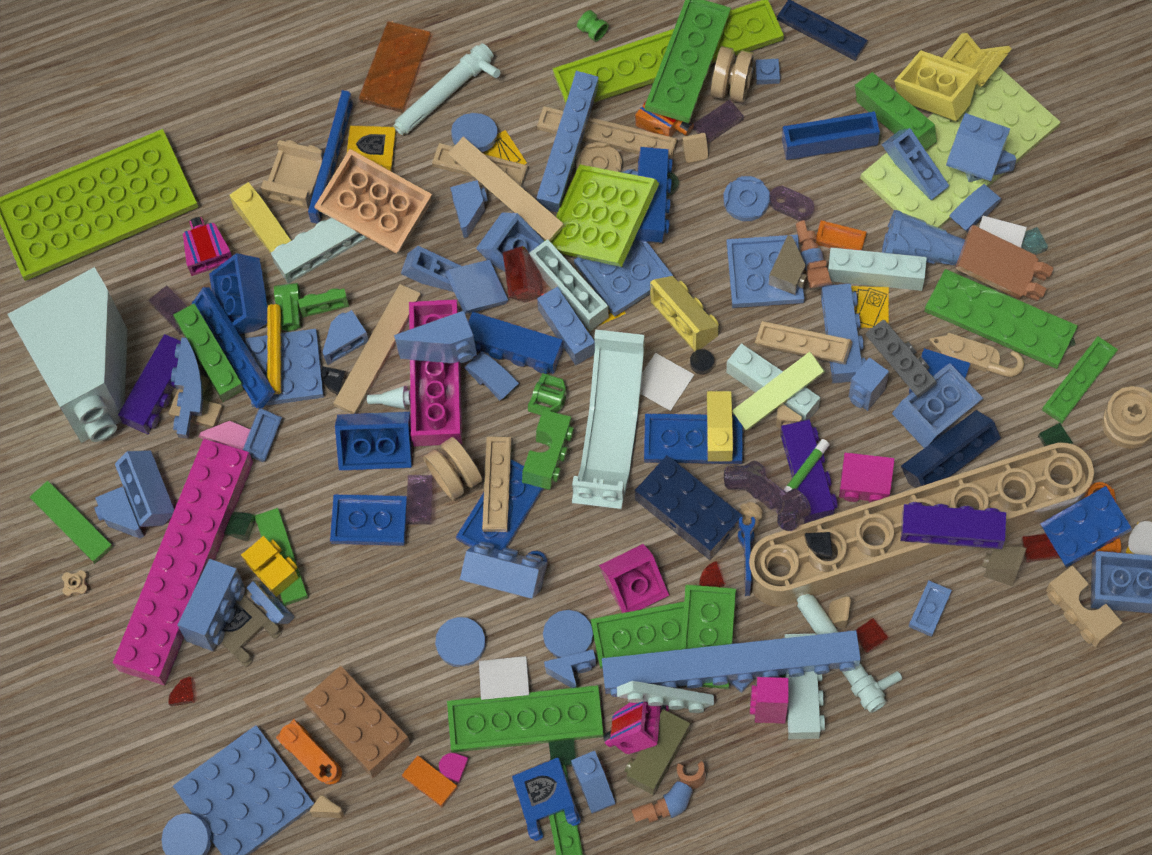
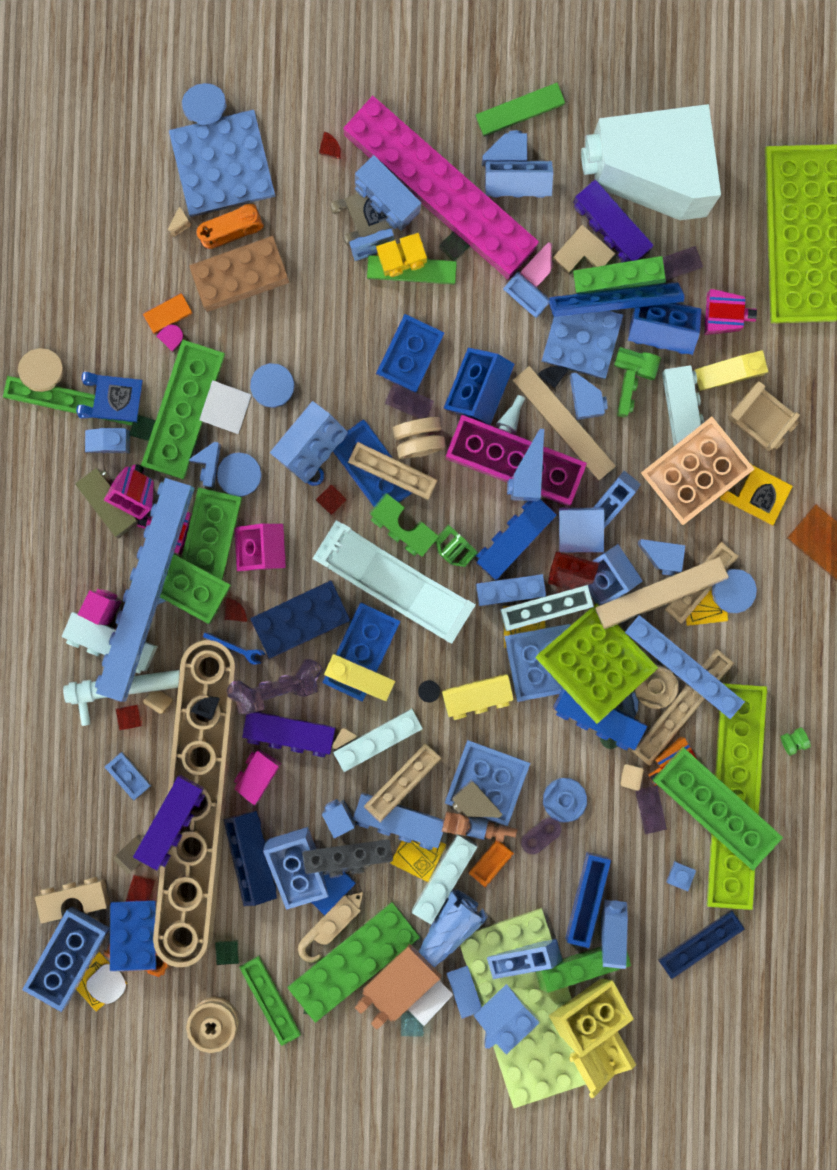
camera: 110 degrees right, 20 degrees up
(79, 588) = (458, 97): tan plate -> none
(187, 378) = (600, 249): medium blue slope -> none
(274, 347) = (598, 333): yellow axle -> none
(331, 152) = (769, 457): blue tile -> none
(469, 66) = (803, 615): light aqua cylinder -> none
(492, 374) = (493, 509): medium blue slope -> none
(553, 534) = (331, 500): none -> clear red tile
(661, 695) = (141, 516): light aqua plate -> none
(664, 381) = (426, 652): white sticker -> none
(675, 800) = (62, 496): nougat piece -> none
(731, 74) = (684, 841): tan wheel -> none
(751, 510) = (273, 668): tan plate -> none
(778, 391) = (361, 739): yellowish green tile -> none
(807, 465) = (283, 725): bright green bar -> none
(851, 94) = (614, 934): none -> medium blue slope

